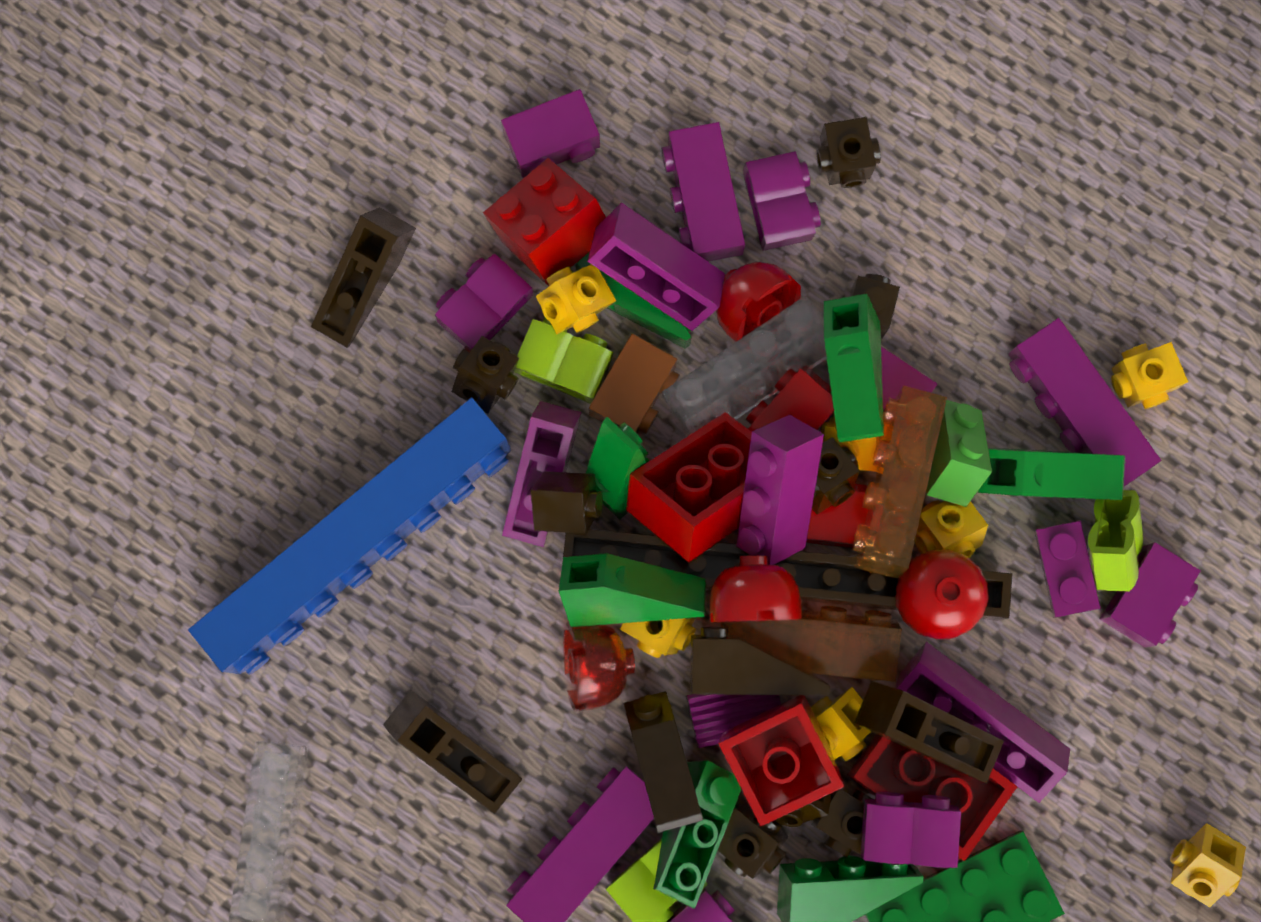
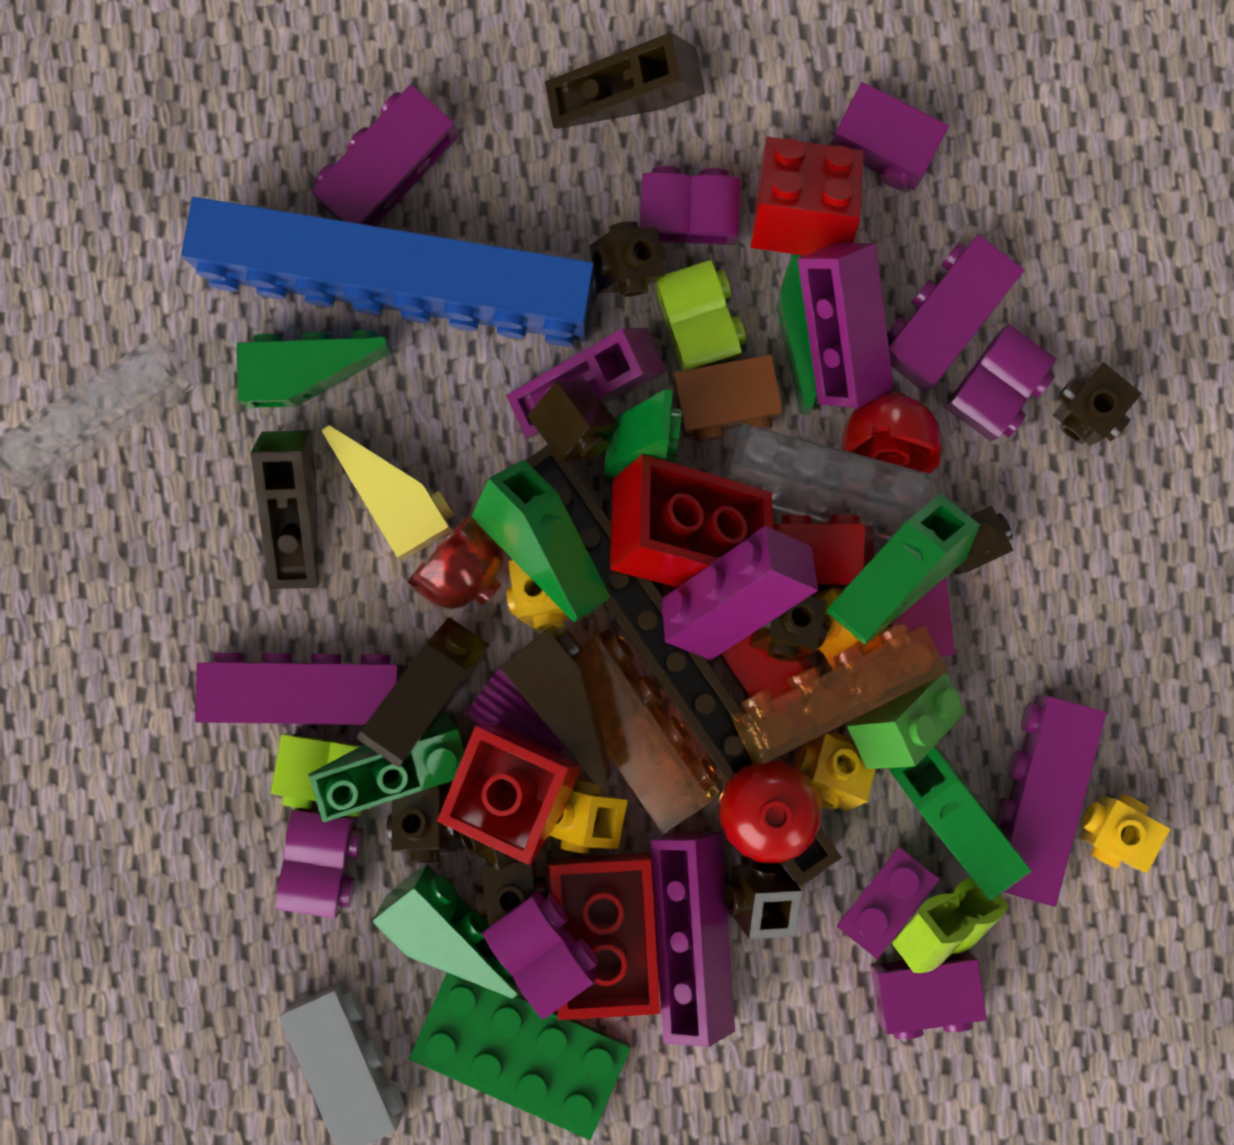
camera: 50 degrees right, 5 degrees up
(270, 480) = (385, 159): none -> magenta brick
(361, 665) = (294, 371): none -> green slope
(512, 670) = (399, 504): none -> light yellow slope
(575, 298) = (758, 278): yellow brick -> none
(755, 593) = (629, 649): red cylinder -> none
(928, 731) = (640, 898): dark brown slope -> none
(997, 652) = (764, 900): none -> dark brown brick

